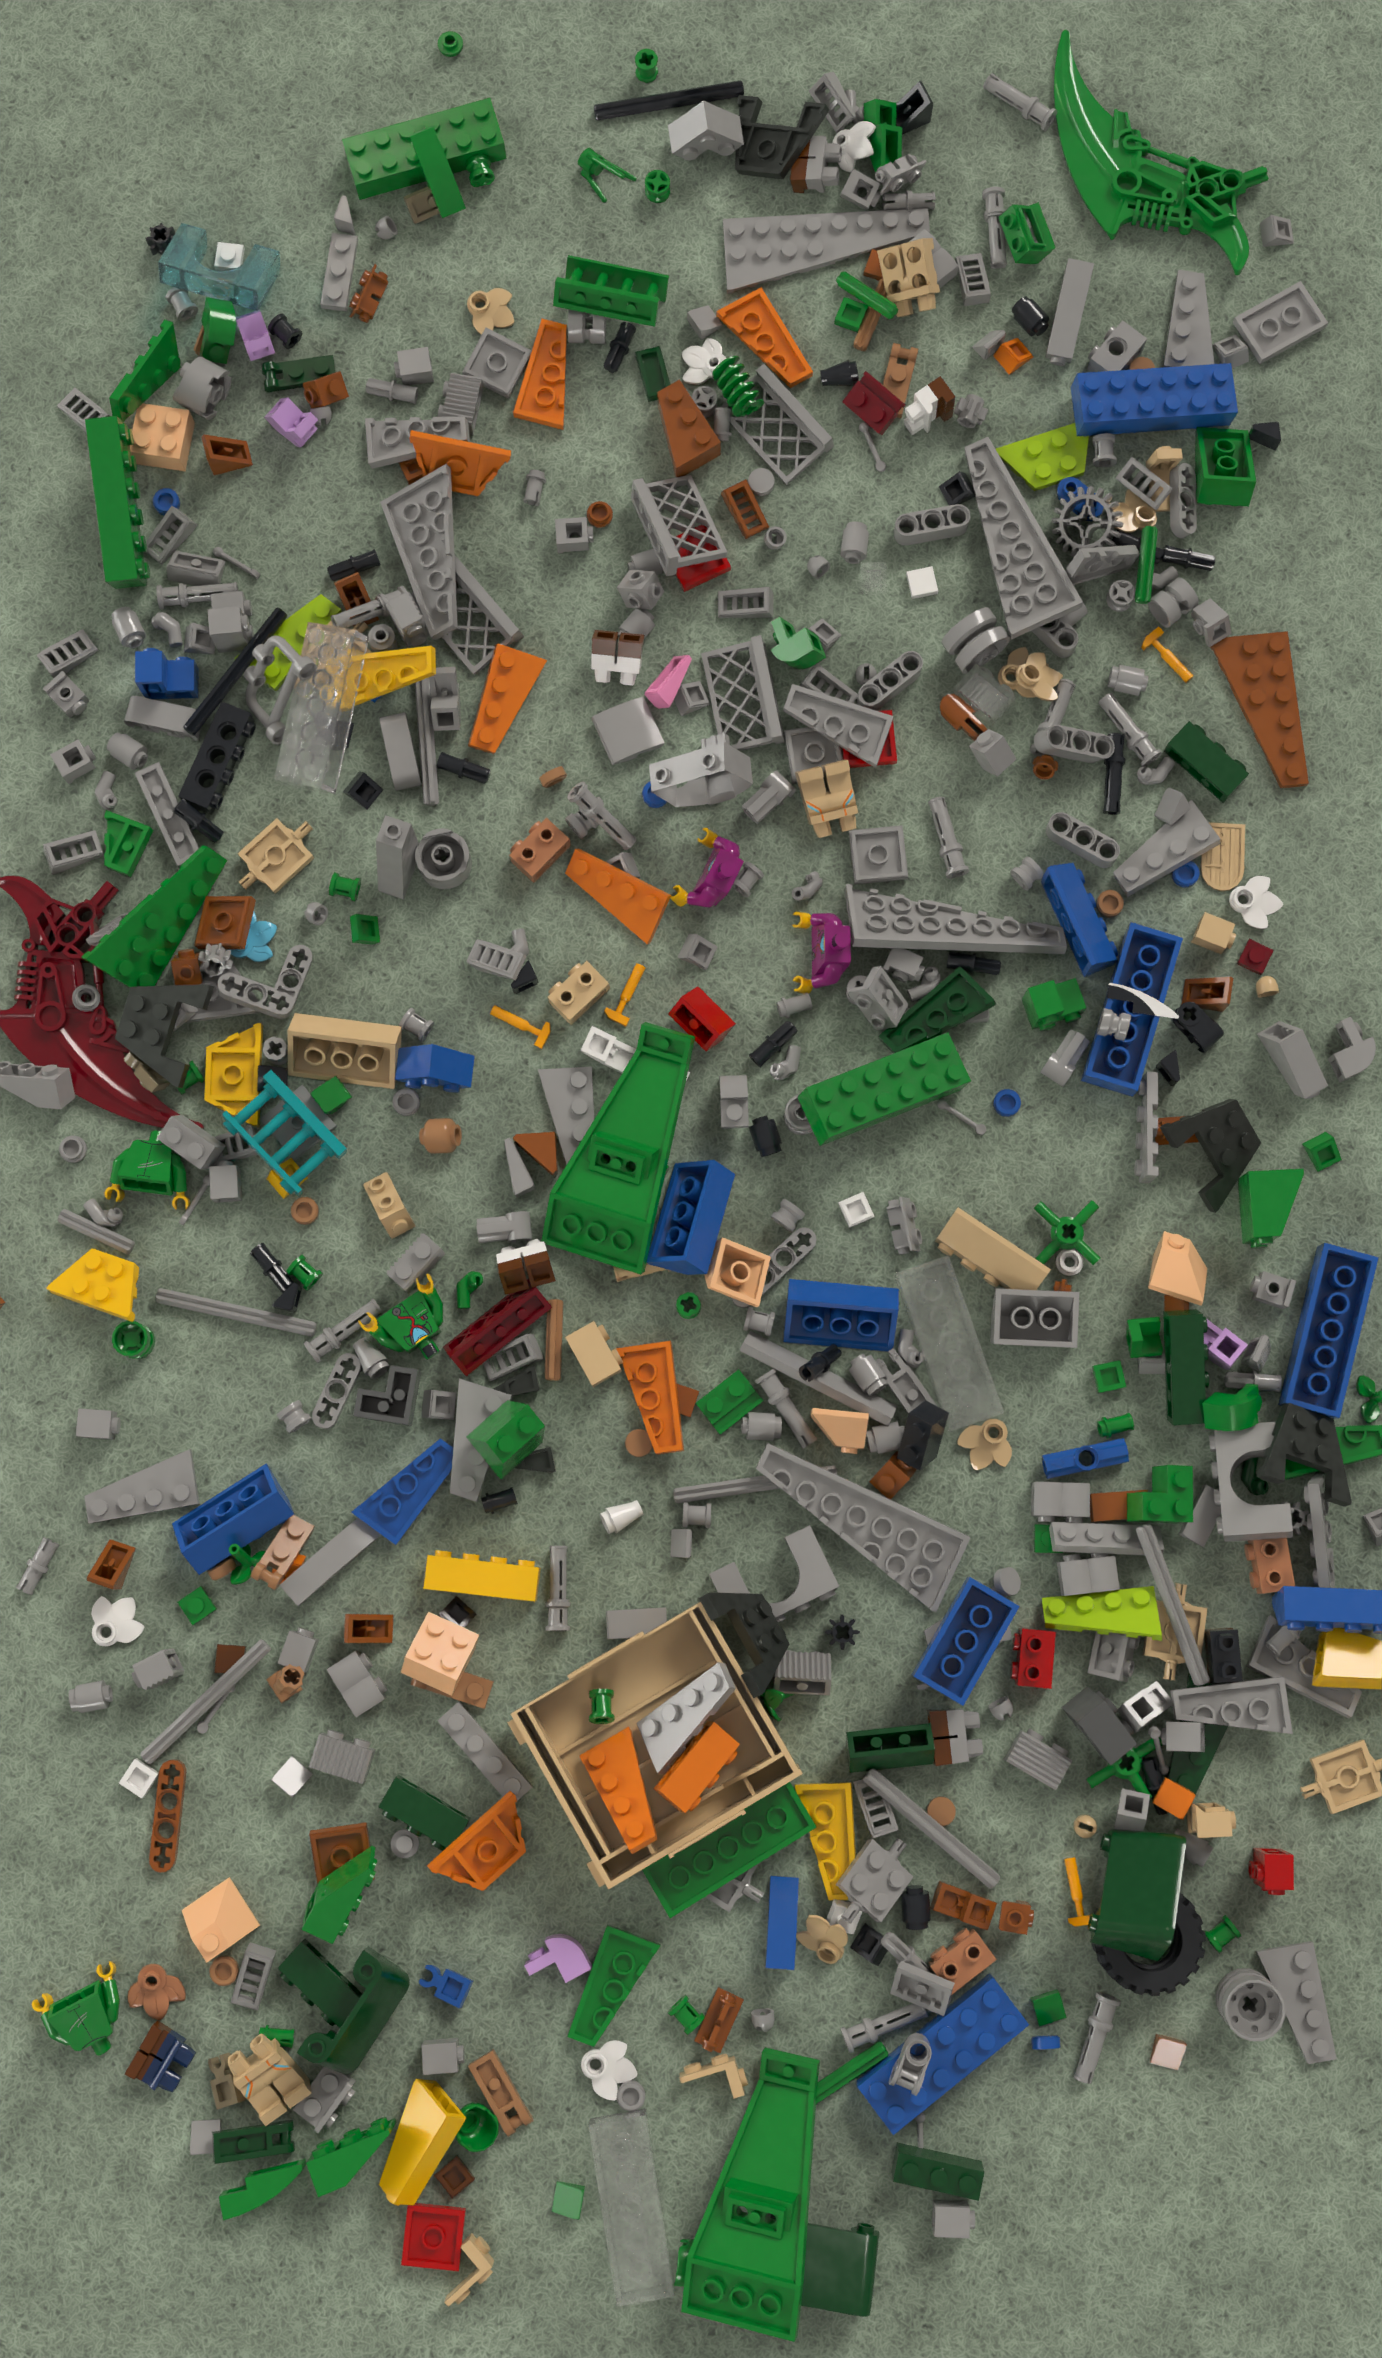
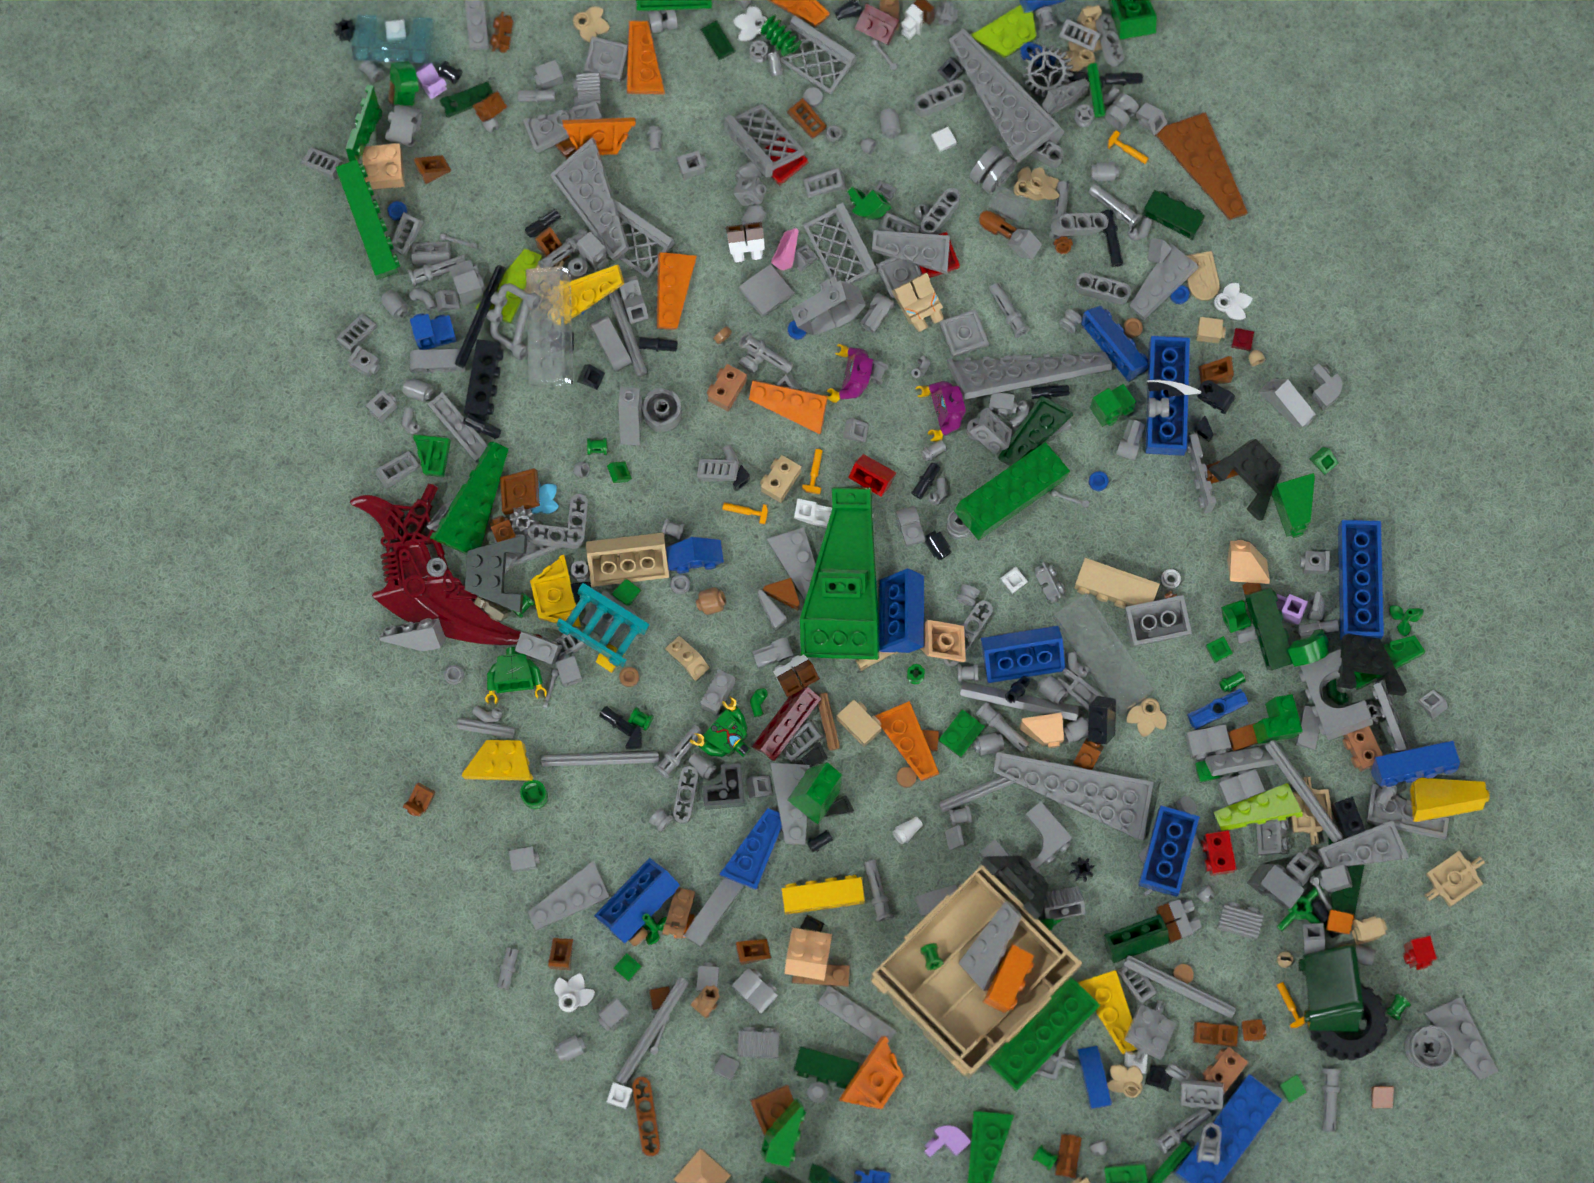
camera: 15 degrees left, 5 degrees down
(275, 855) = (542, 437): tan plate -> none
(292, 422) = (472, 134): lavender brick -> none
(599, 514) = (706, 146): dark orange plate -> none
(619, 347) = (688, 28): black axle -> none
(619, 1781) = (960, 1006): orange wing -> none
(686, 430) = (751, 73): dark orange wedge -> none
(915, 1907) = (1183, 1043): black brick -> none
(1045, 2042) = (1297, 1111): blue tile -> none
(1077, 1233) = (1159, 553): green bar -> none

